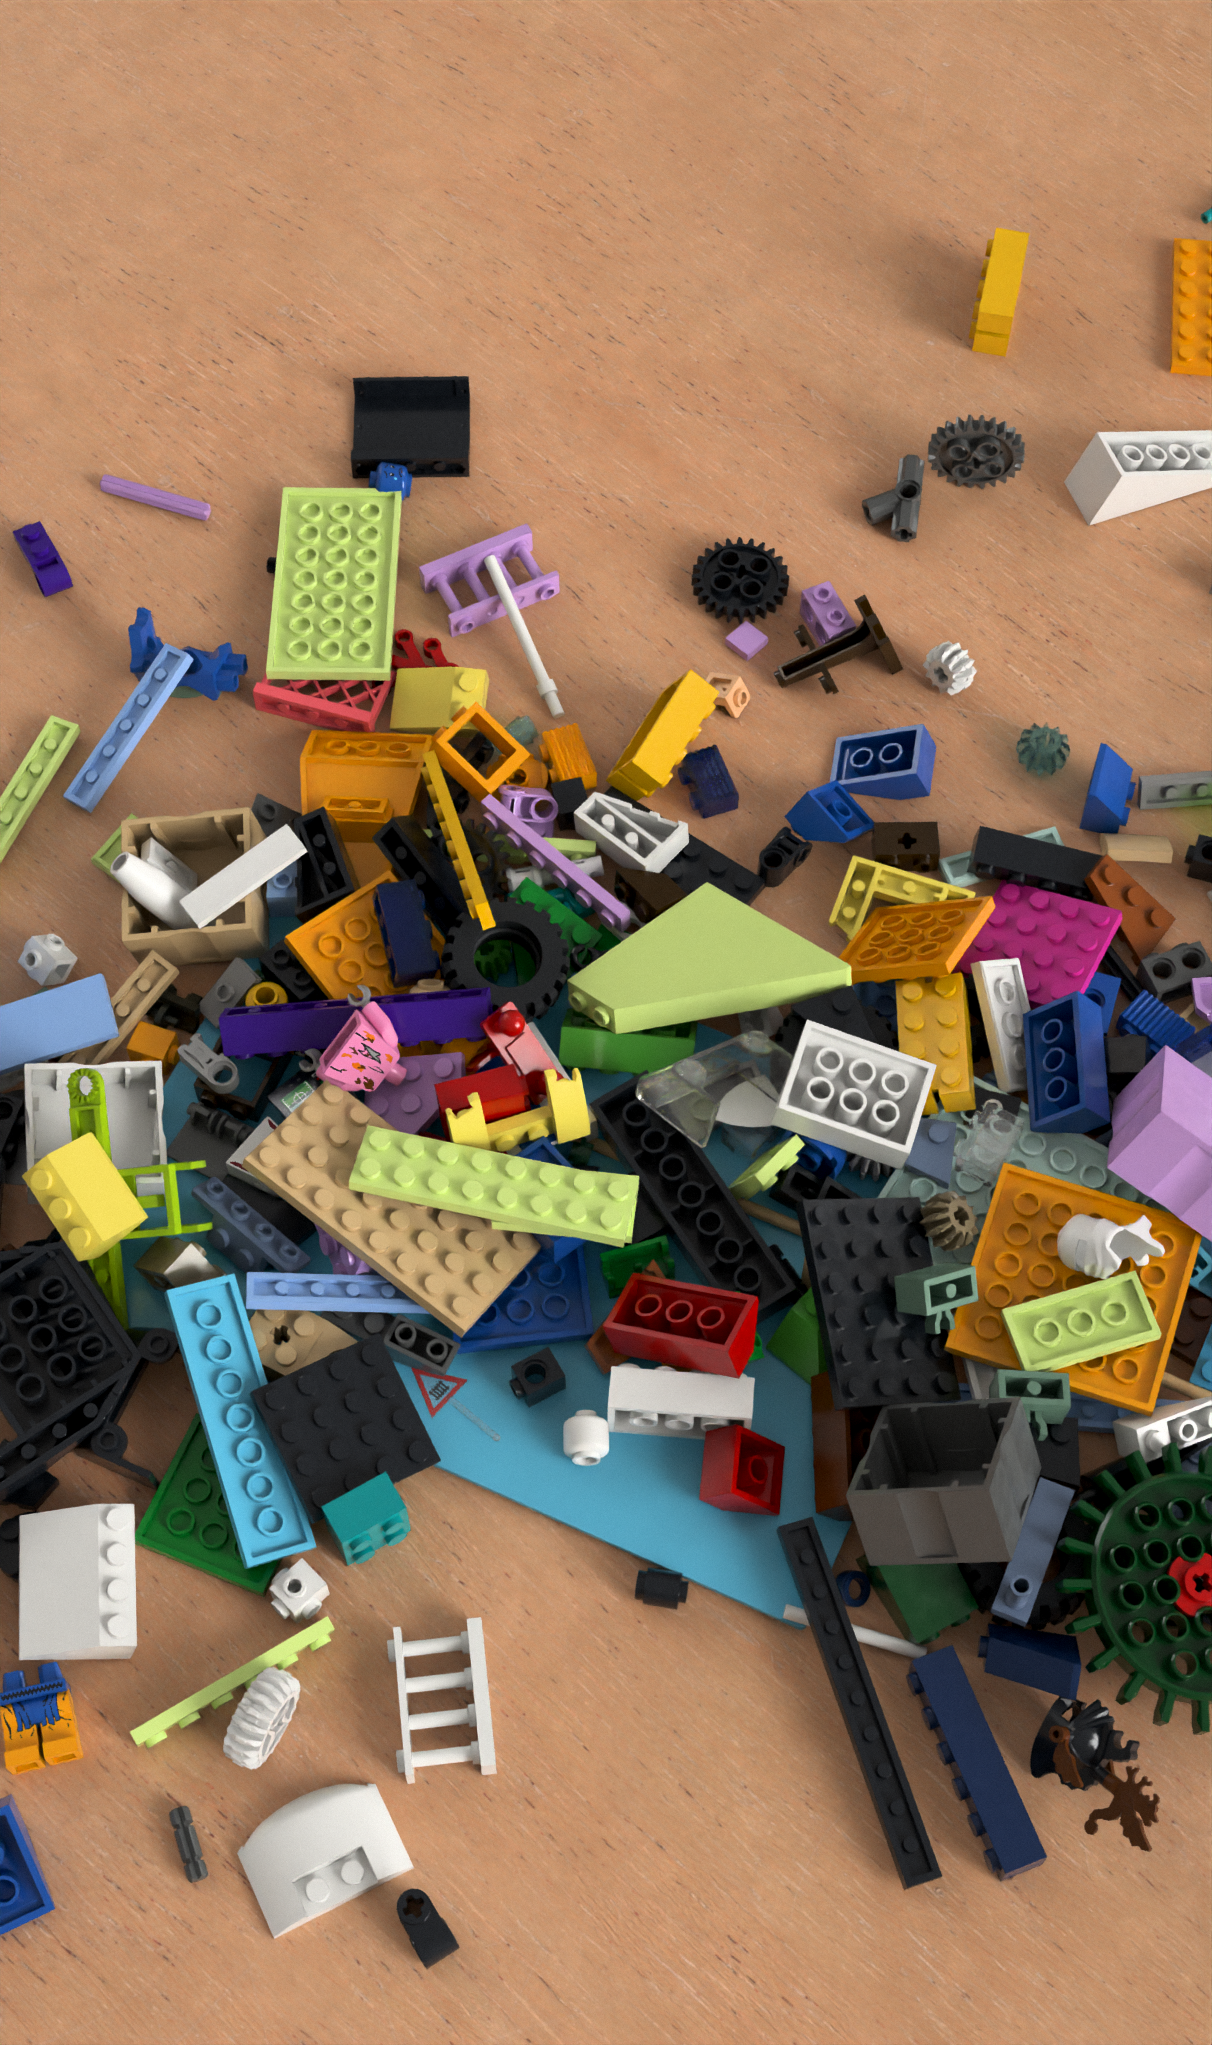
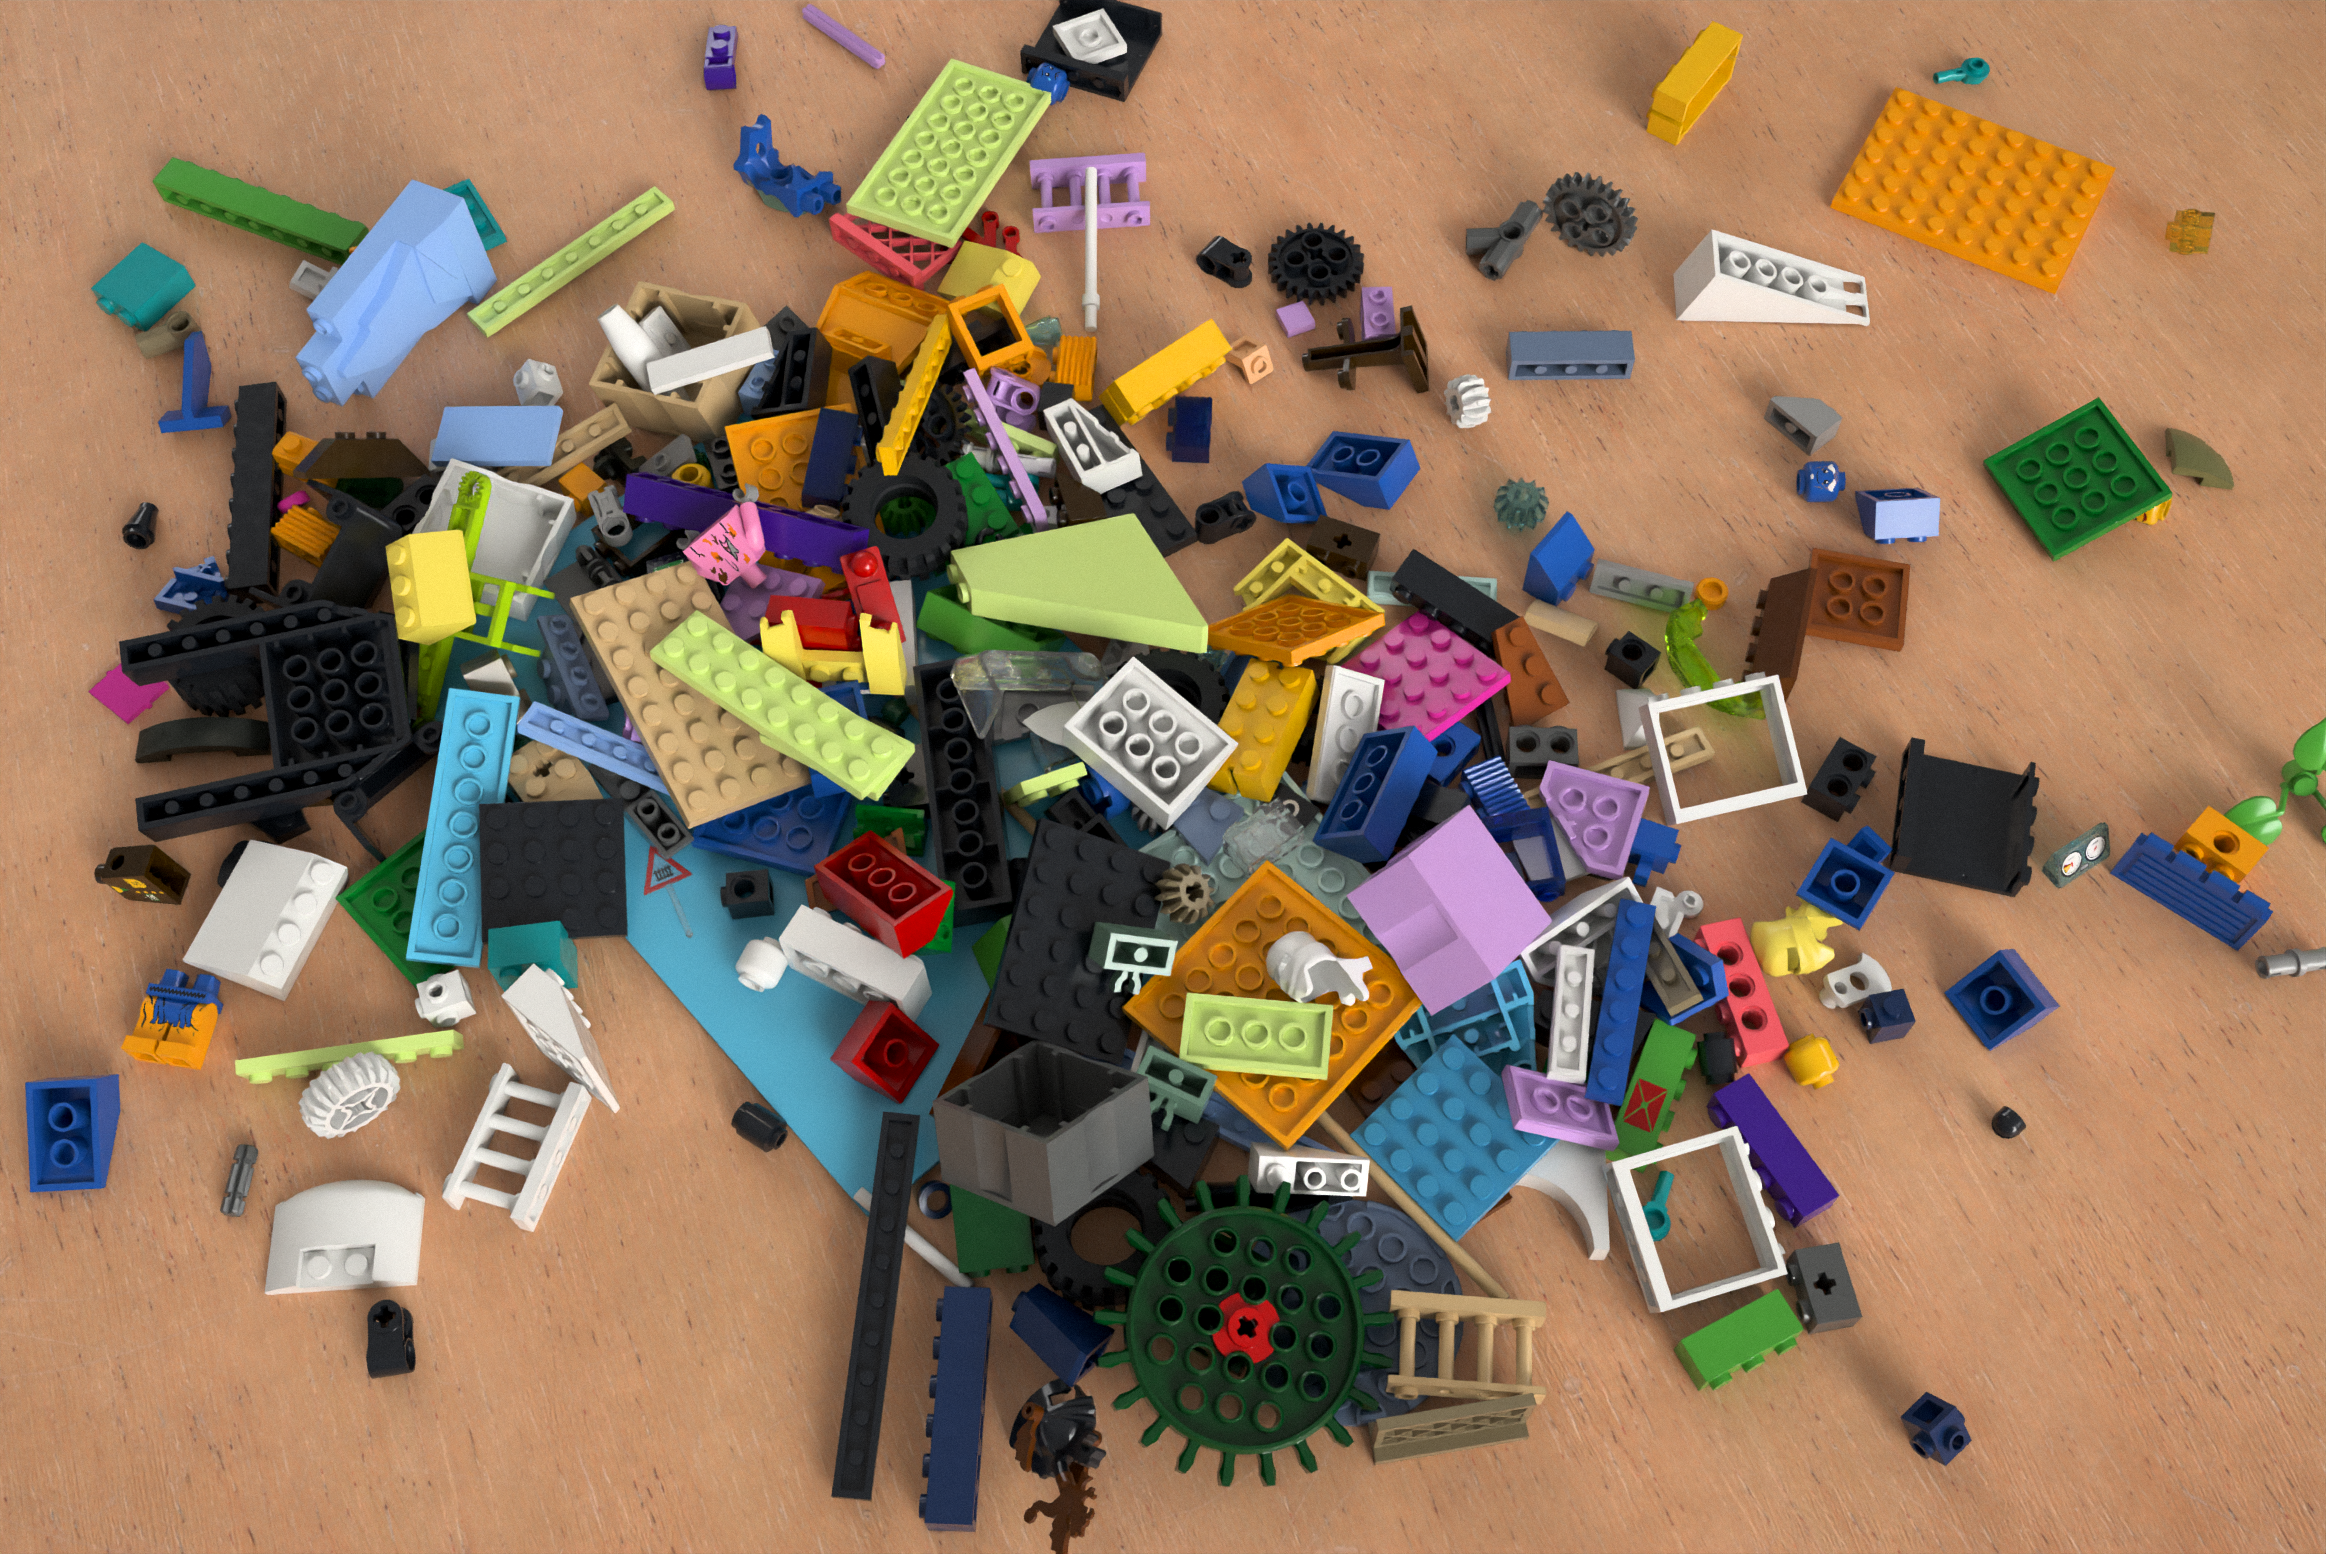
camera: 25 degrees right, 0 degrees up
(128, 728) = (707, 214): light blue plate -> none
(408, 422) = (1090, 37): none -> white plate
(452, 1578) = (560, 1030): none -> white slope
(653, 603) = (1226, 262): none -> black piece
(836, 1010) = (1178, 667): black wing -> none
(1015, 592) = (1570, 355): none -> sand blue brick
(1033, 1552) = (1100, 1230): sand blue piece -> none

